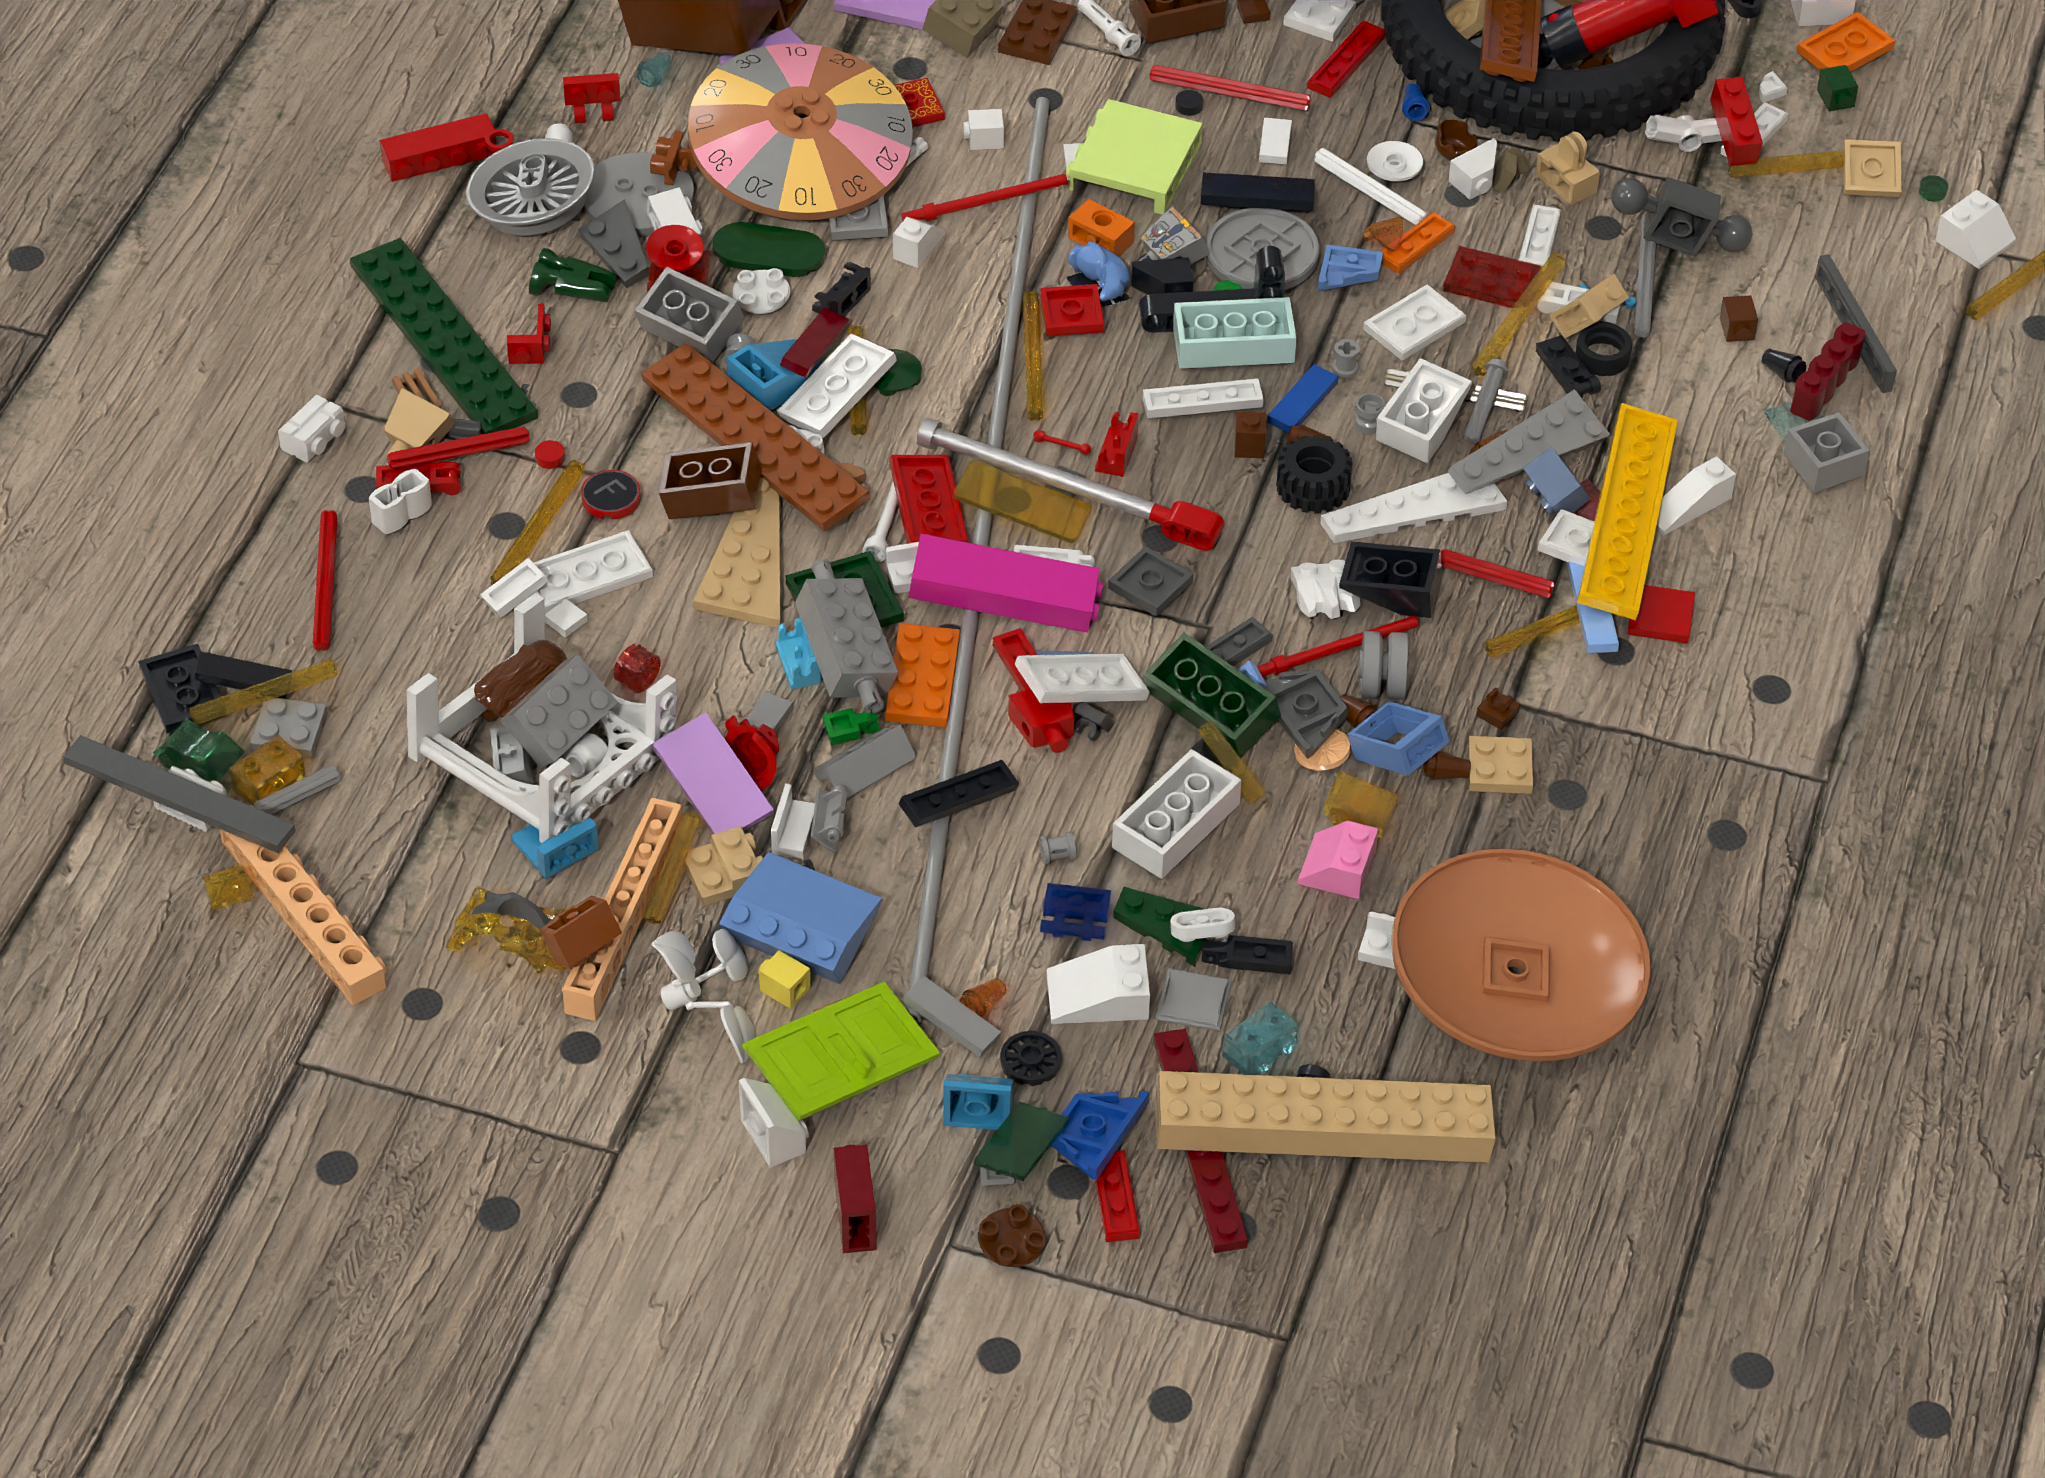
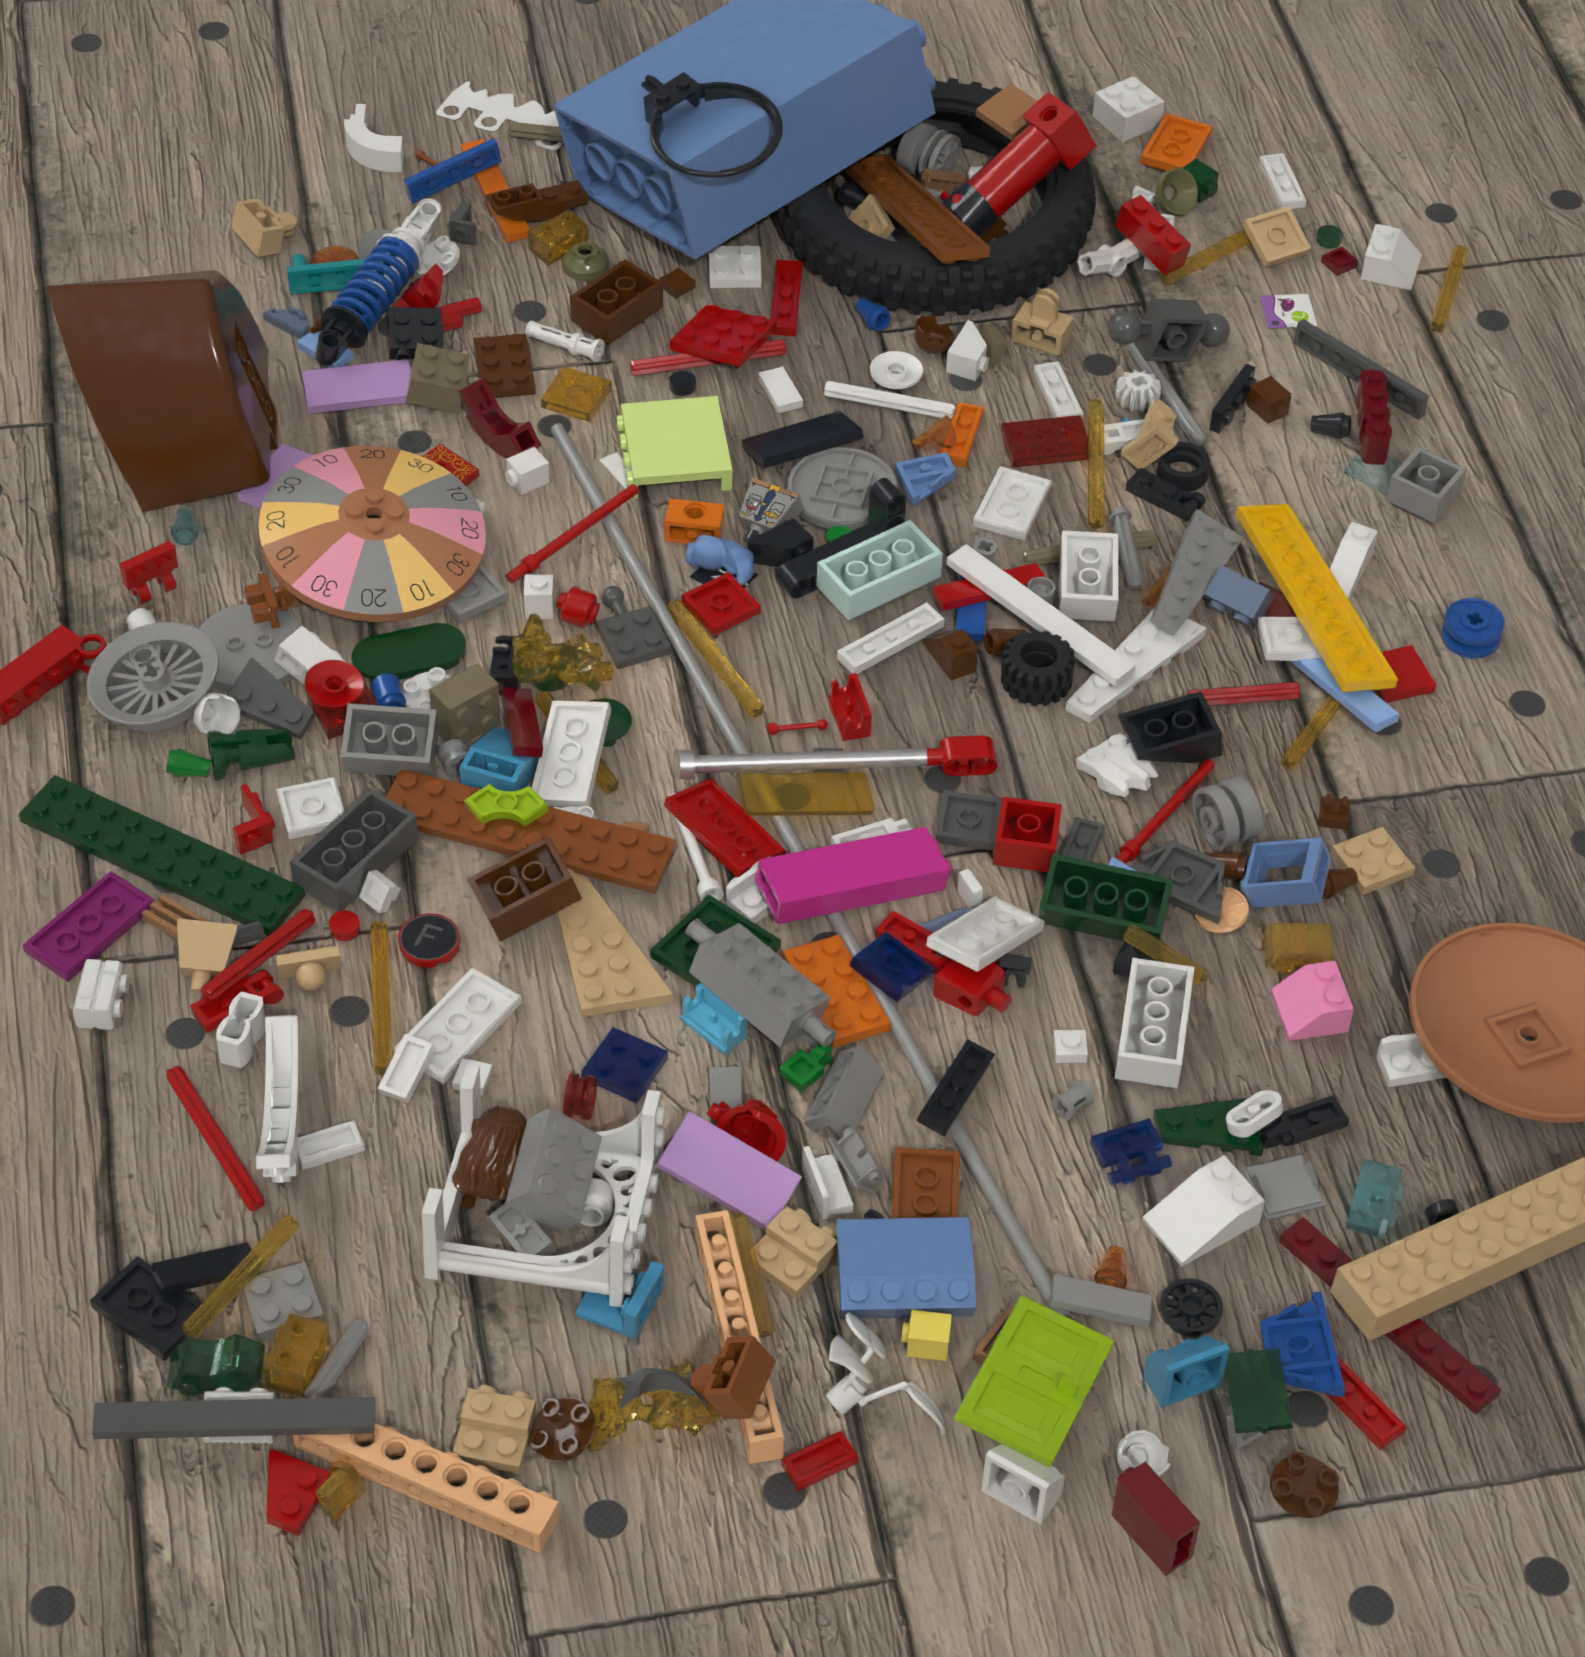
camera: 30 degrees left, 0 degrees up
(185, 877) = (292, 1491): none -> red wing
(345, 371) = (88, 926): none -> magenta tile
(382, 896) = (495, 1428): none -> tan plate
(384, 581) = (282, 1099): none -> white arch
(411, 623) = (329, 1144): none -> white tile
(432, 919) = (562, 1429): none -> reddish brown dish
(494, 474) = (309, 966): none -> tan tile
(511, 269) = (186, 764): none -> green cone
(564, 236) = (216, 713): none -> white hair
(593, 347) = (309, 806): none -> white tile
(596, 393) = (360, 840): none -> dark grey brick
(596, 437) = (379, 891): none -> white tile
(624, 1036) = (819, 1460): none -> red tile
(699, 661) = (625, 1064): none -> clear blue plate
(723, 274) = (388, 691): none -> blue brick
(753, 409) = (518, 805): none -> lime tile
(774, 308) = (466, 704): none -> dark tan brick
(876, 860) = (925, 1183): none -> dark orange plate
(889, 1150) = (1143, 1447): none -> white hair
(896, 309) = (557, 664): none -> clear yellow hips
(941, 264) = (578, 607): none -> red head
(974, 307) = (631, 635): none -> dark grey plate
(980, 672) = (891, 966): none -> clear blue plate
(983, 72) = (493, 425): none -> dark red arch
(1084, 77) = (576, 394): none -> clear yellow plate
(1093, 805) = (1070, 1046): none -> white plate
(1104, 627) = (969, 889): none -> white tile
(1188, 607) = (1027, 834): none -> red brick
(1255, 71) = (723, 335): none -> red plate
(1323, 385) = (965, 593): none -> red tile
(1351, 428) = (1040, 614): none -> white tile
(1615, 260) = (1137, 390): none -> white gear
(1700, 304) = (1232, 399): none -> black plate
(1767, 599) = (1472, 628): none -> blue wheel
(1816, 92) = (1184, 190): none -> olive piece
(1840, 243) = (1287, 310): none -> sticker
(1924, 215) = (1339, 261): none -> dark red tile
(1929, 119) = (1282, 181): none -> white tile

